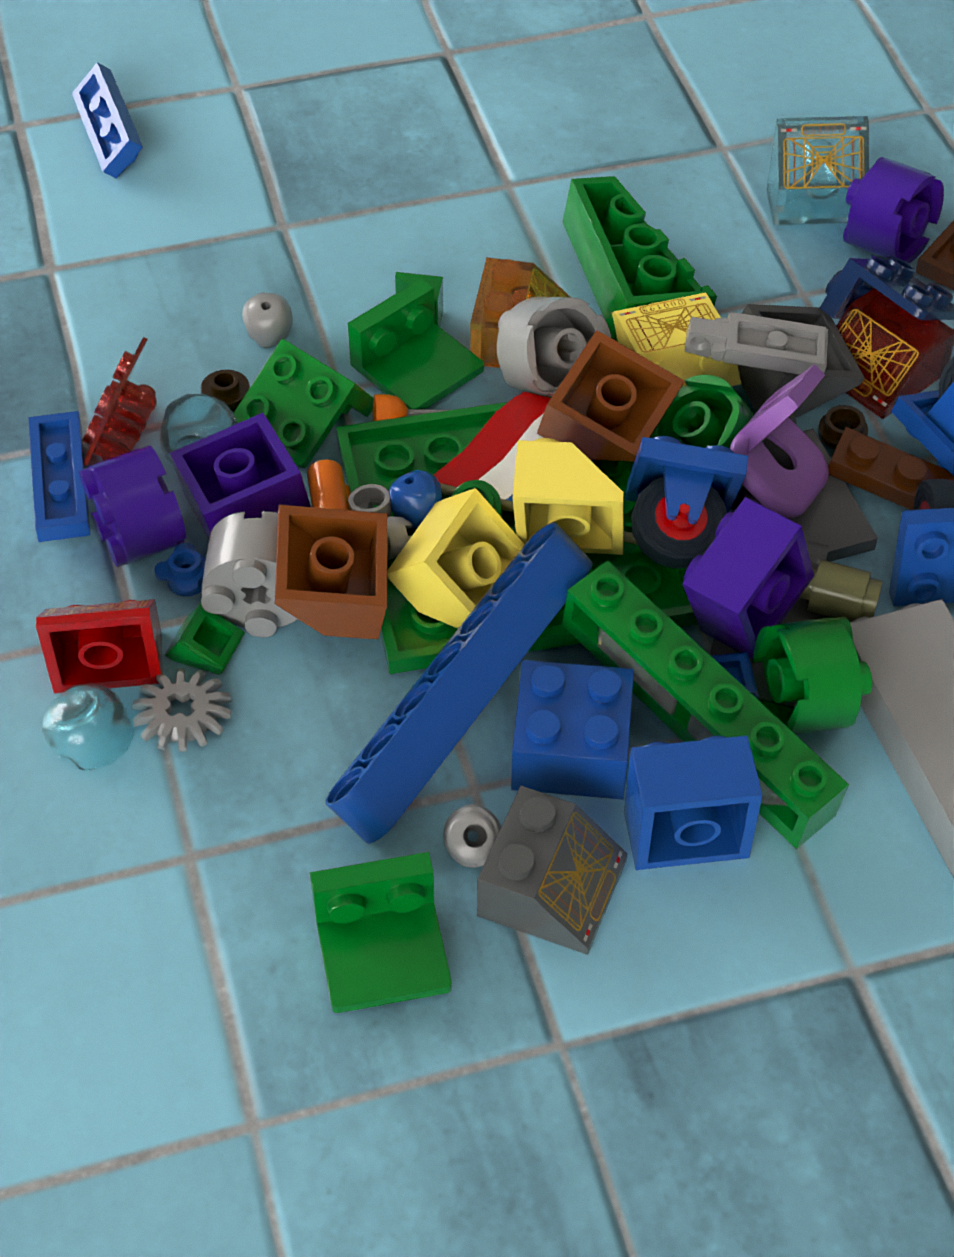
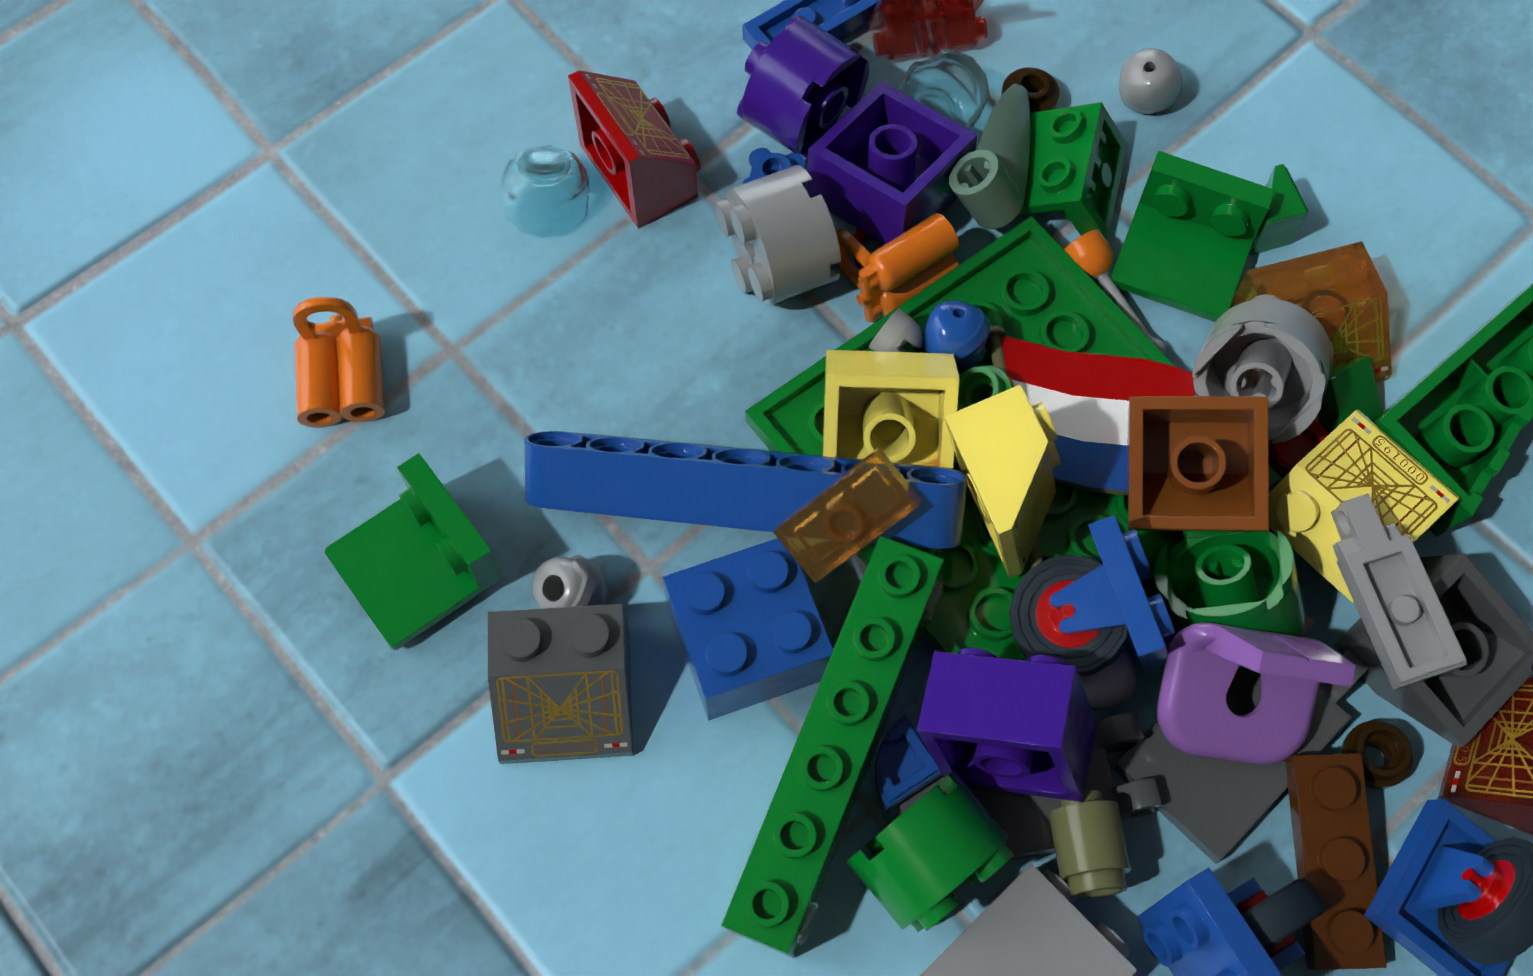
camera: 65 degrees right, 15 degrees up
(160, 936) = (336, 365): none -> orange piece
(179, 727) = (617, 276): light grey gear -> none
(205, 641) = (698, 241): green slope -> none
(288, 421) = (995, 175): none -> sand green piece
(332, 569) = (796, 294): dark orange slope -> none
(368, 495) = (921, 292): light grey hinge -> none
(539, 603) = (847, 515): none -> clear orange plate
(691, 802) = (692, 785): blue brick -> none

